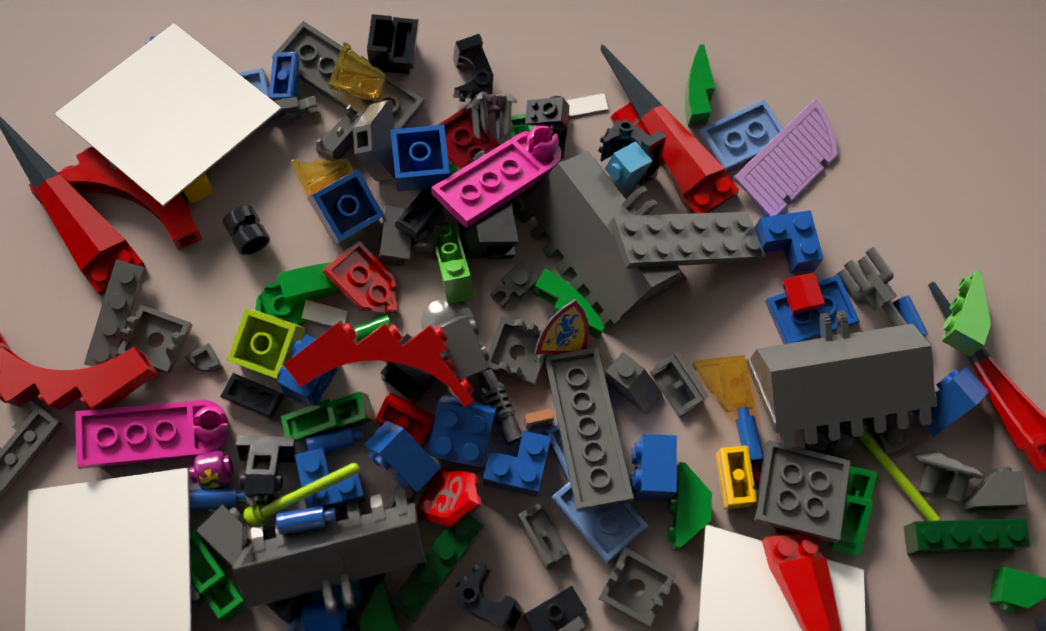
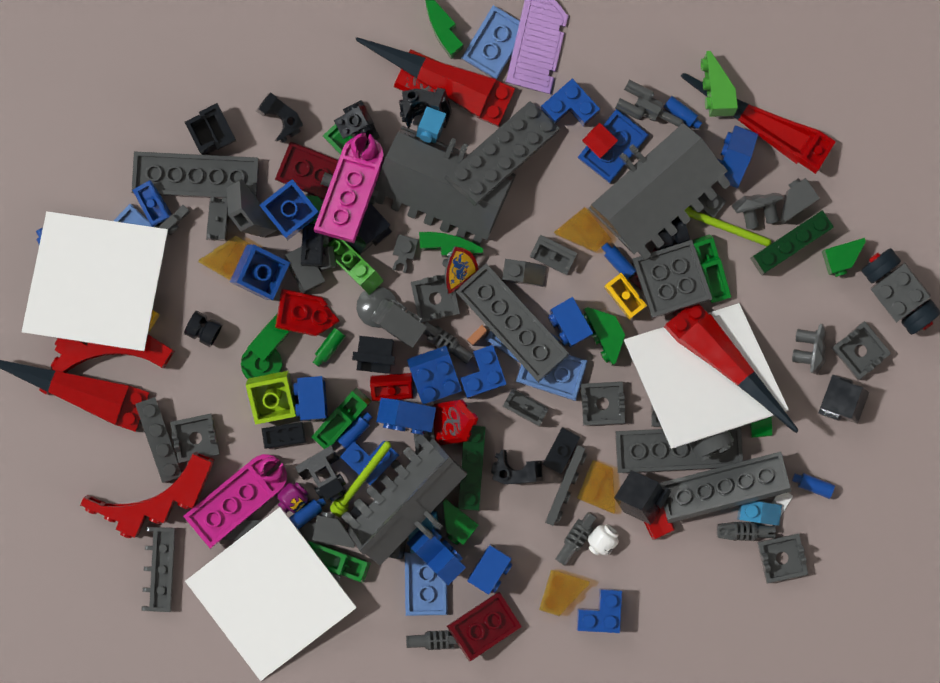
camera: 25 degrees left, 15 degrees up
(204, 359) = (235, 430): dark grey tile -> none
(304, 519) = (373, 492): blue cylinder -> none
(323, 313) = (292, 352): white window -> none
(340, 348) = (328, 376): red arch -> none
(356, 75) = (202, 171): clear yellow wing -> none
(484, 105) = (303, 140): dark grey piece -> none
(587, 105) = (371, 87): white window -> none

